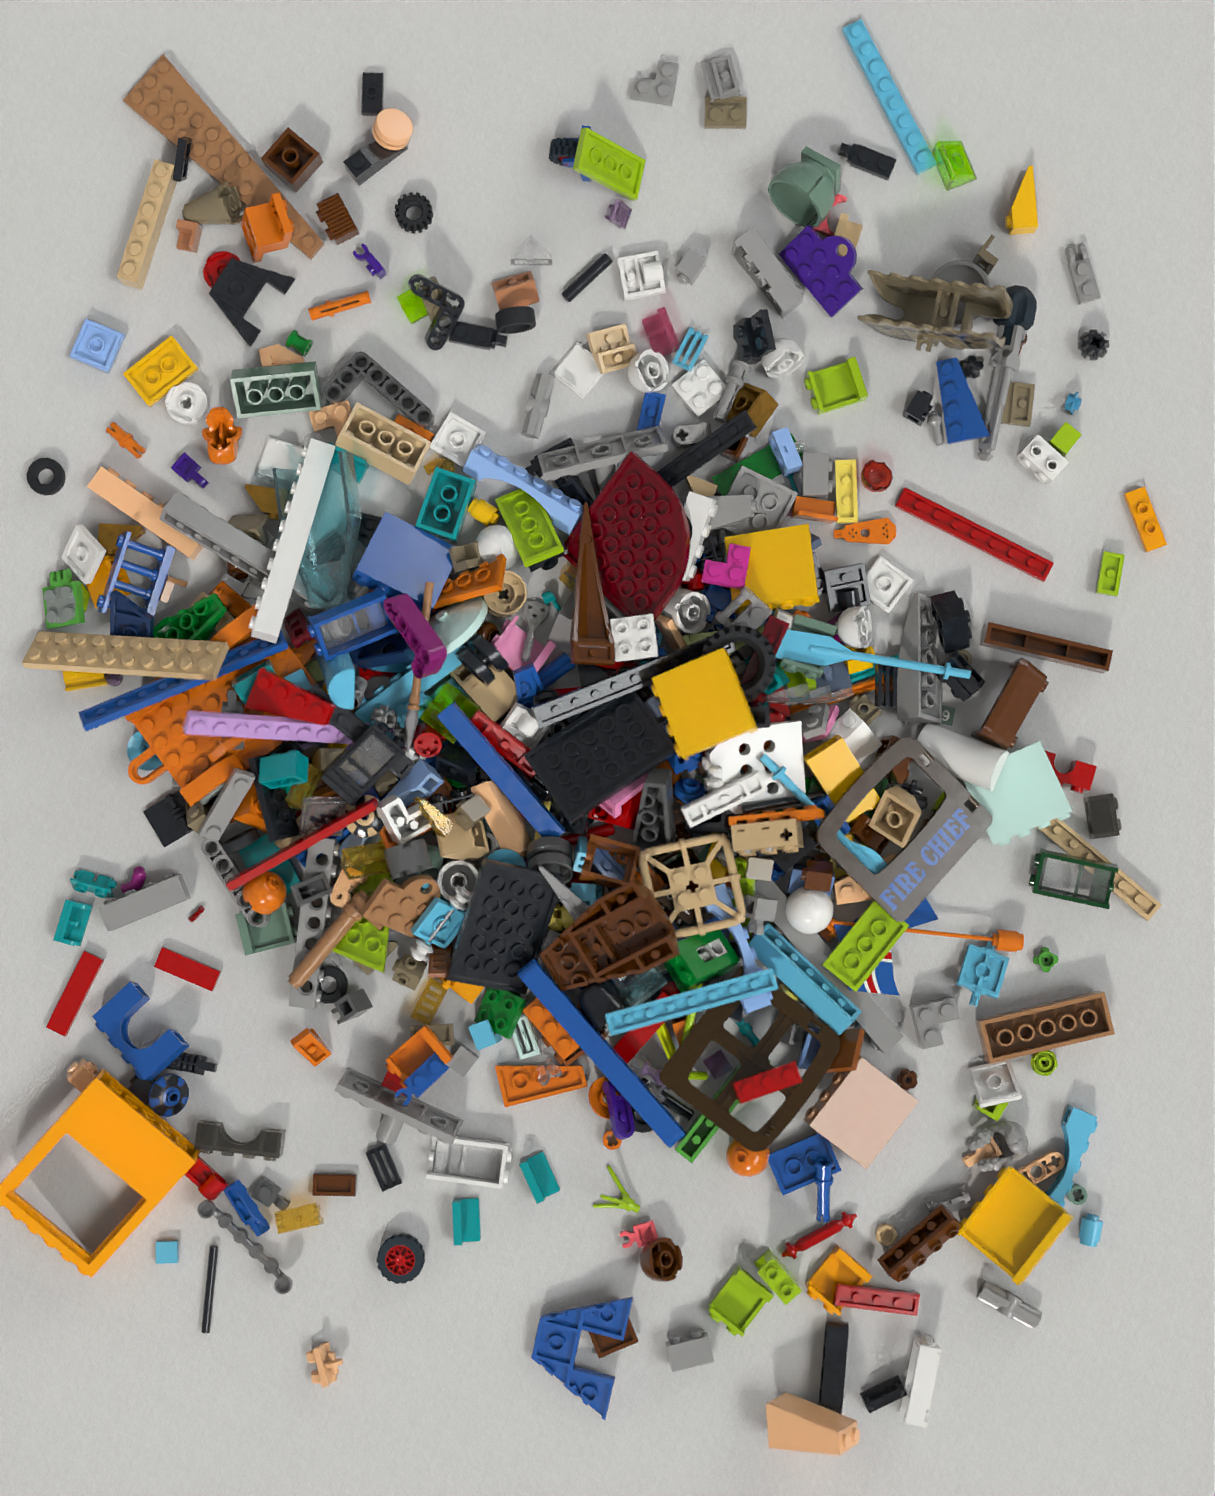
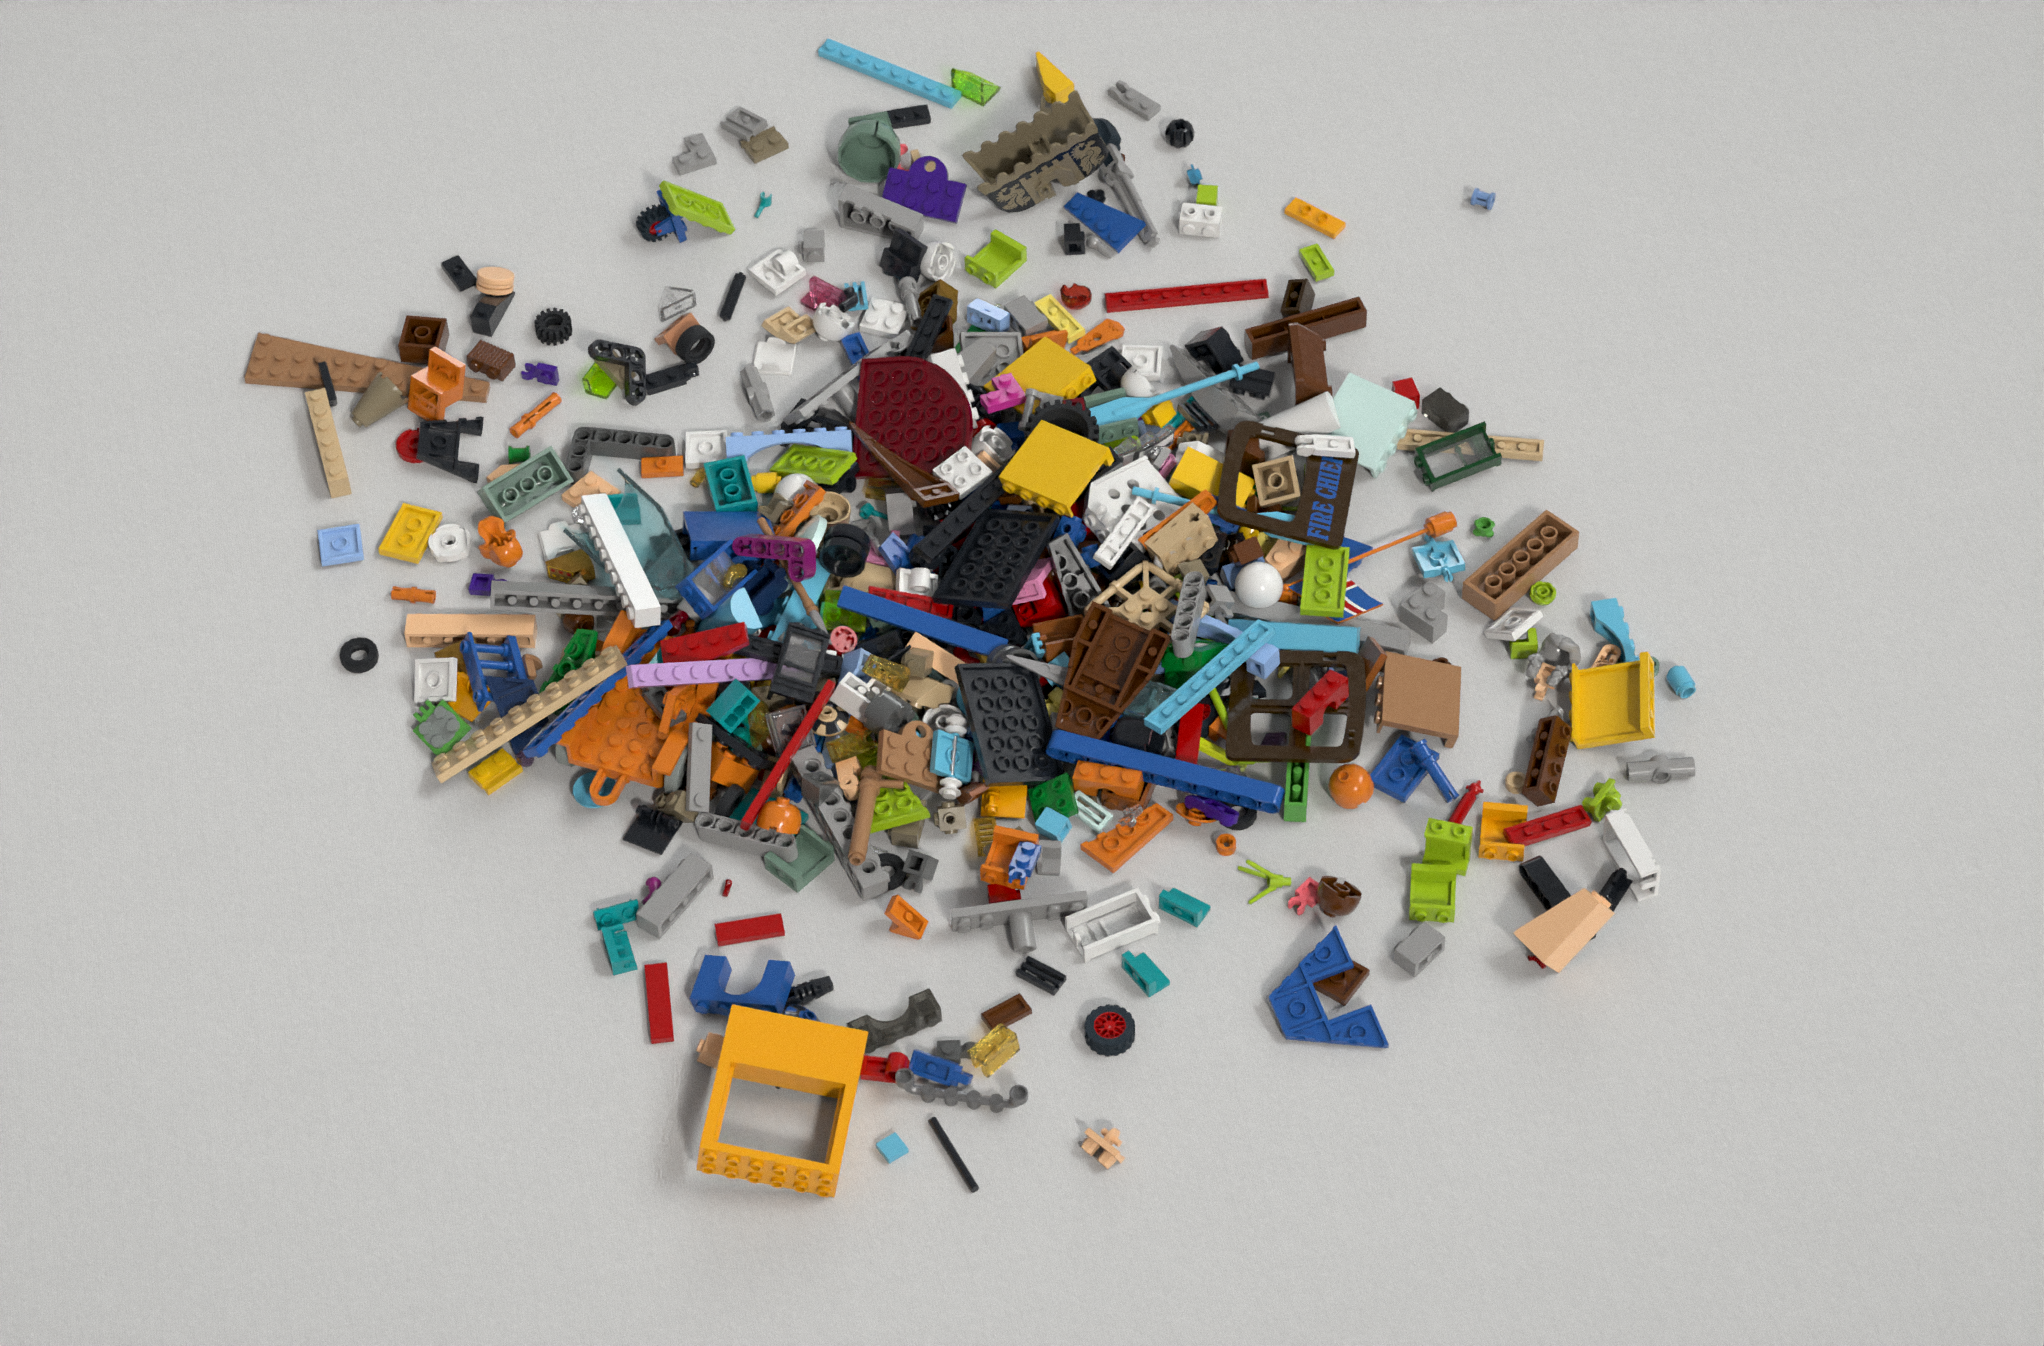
camera: 35 degrees left, 35 degrees down
(188, 235) = (367, 434): nougat panel -> none
(373, 624) = (733, 572): none -> clear yellow arm
(383, 443) = (655, 475): tan slope -> none
(619, 214) = (727, 244): clear purple tile -> none
(678, 357) = (851, 299): none -> black arm
(681, 183) = (764, 202): none -> teal hand
(715, 922) = (1188, 614): none -> light grey beam
(949, 1298) = (1605, 800): none -> lime hips
(965, 808) = (1325, 446): none -> white hinge
(1019, 404) = (1154, 198): dark tan plate -> none
(1059, 614) = (1297, 298): none -> dark brown brick

